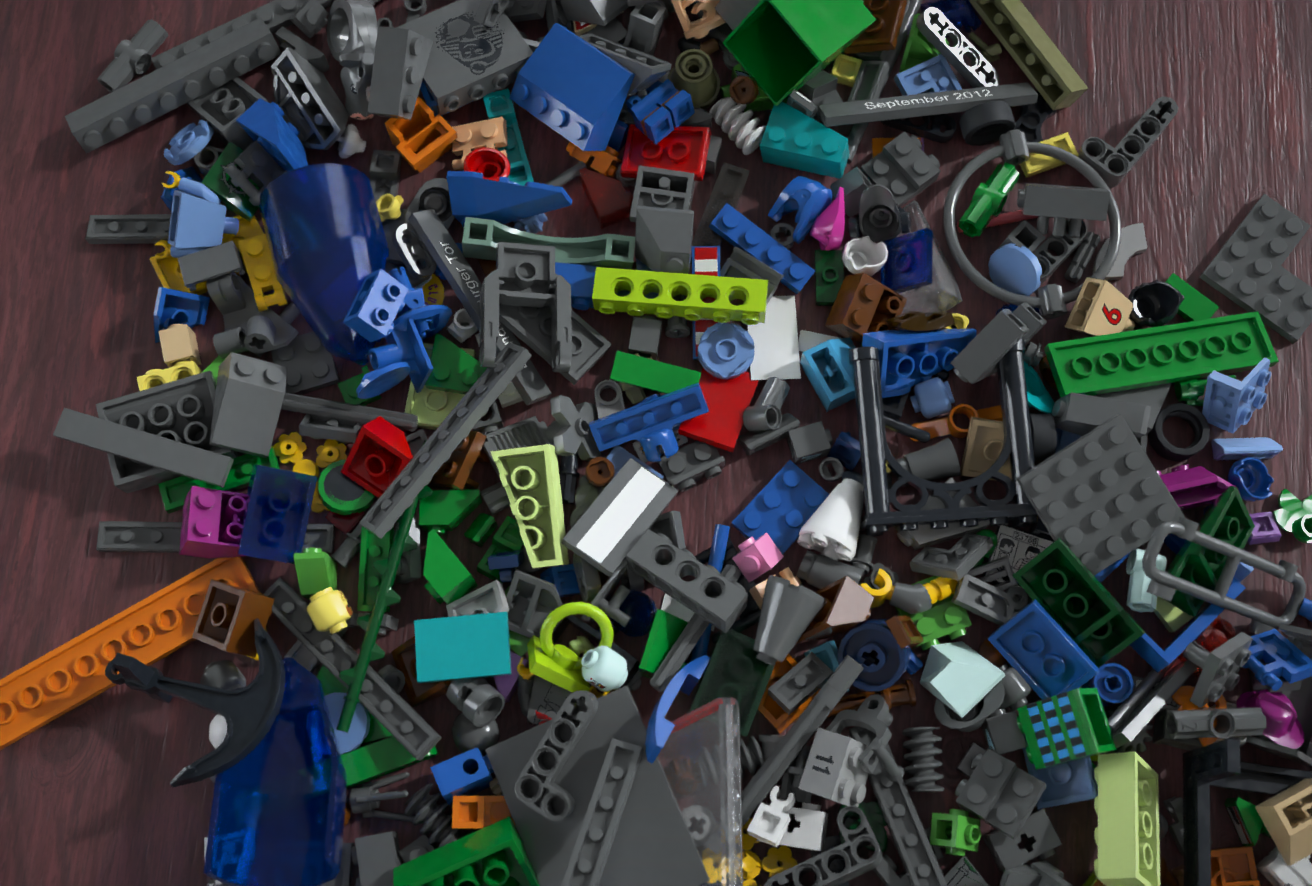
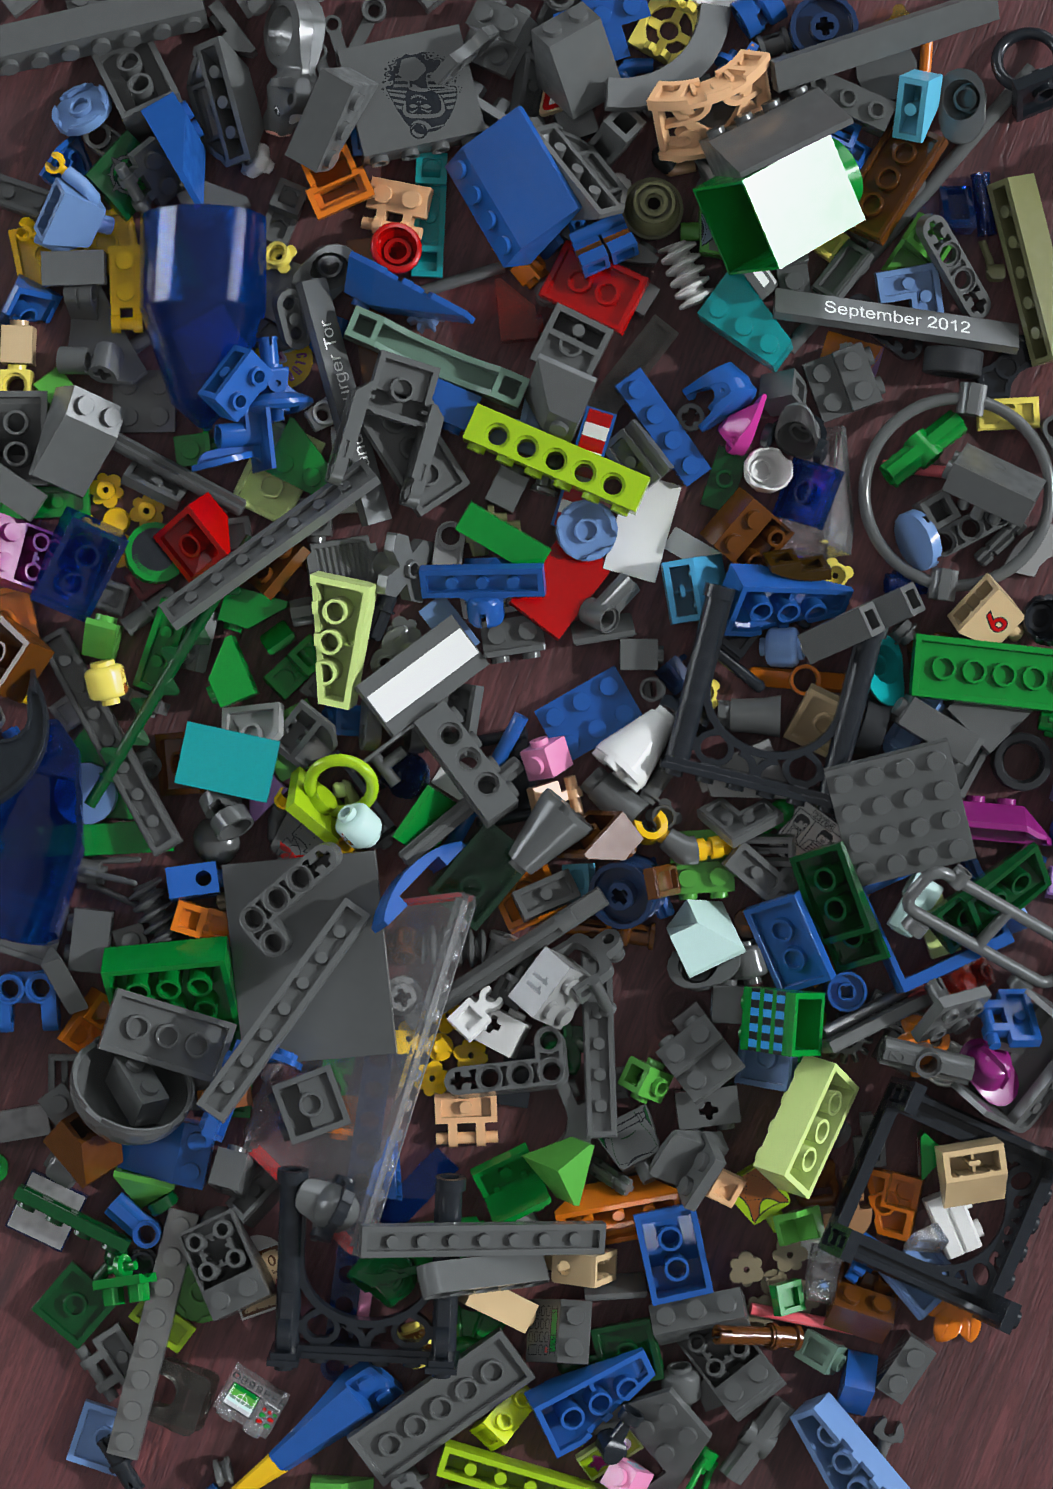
camera: 15 degrees right, 15 degrees up
(507, 563) = (294, 685): dark blue tile -> none
(599, 472) = (415, 620): reddish brown tile -> none
(743, 90) = (699, 246): reddish brown tile -> none
(922, 759) = (640, 1004): dark grey piece -> none

